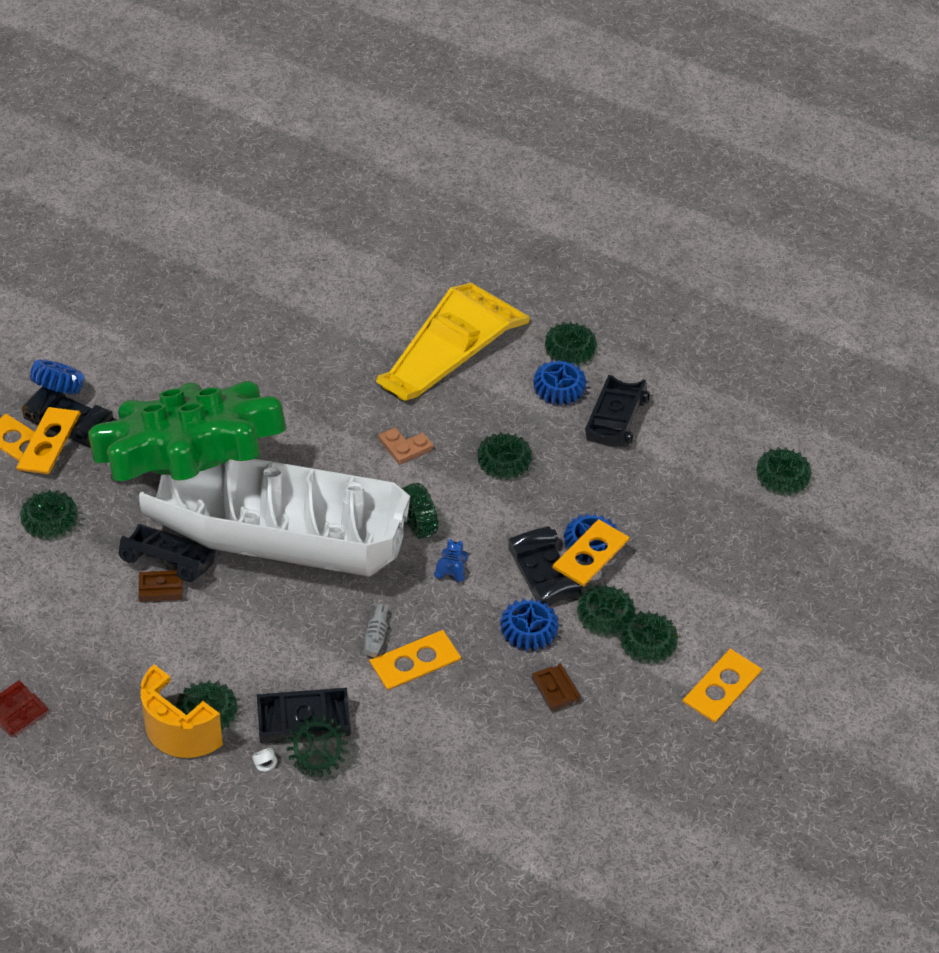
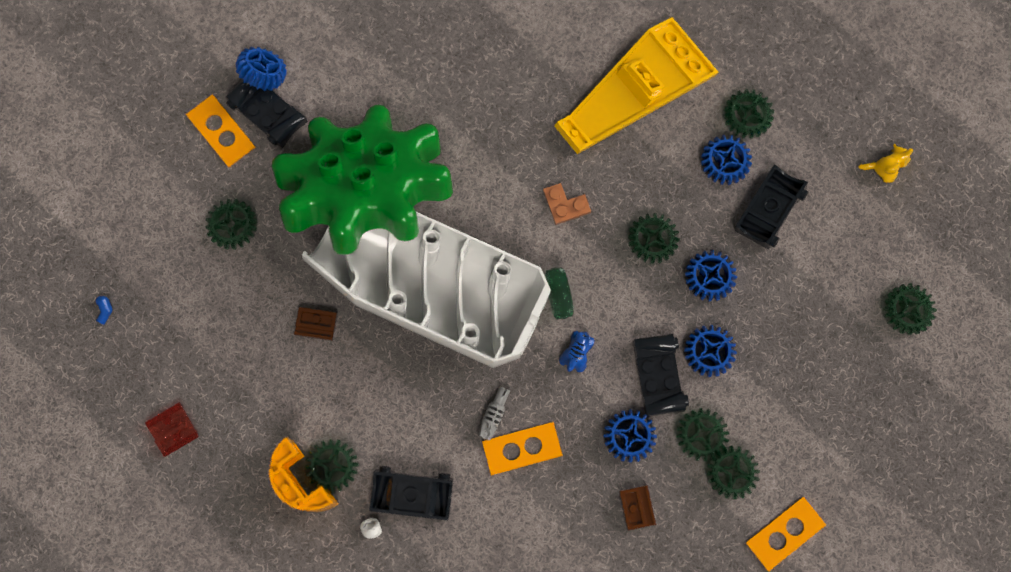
camera: 15 degrees right, 30 degrees up
(43, 464) = (224, 157): light orange piece -> none
(191, 556) = (317, 288): black piece -> none
(330, 760) = (417, 526): clear green gear -> none
(573, 476) = (716, 280): none -> blue gear
(584, 573) = (678, 385): light orange piece -> none
(723, 361) = (889, 165): none -> yellow animal

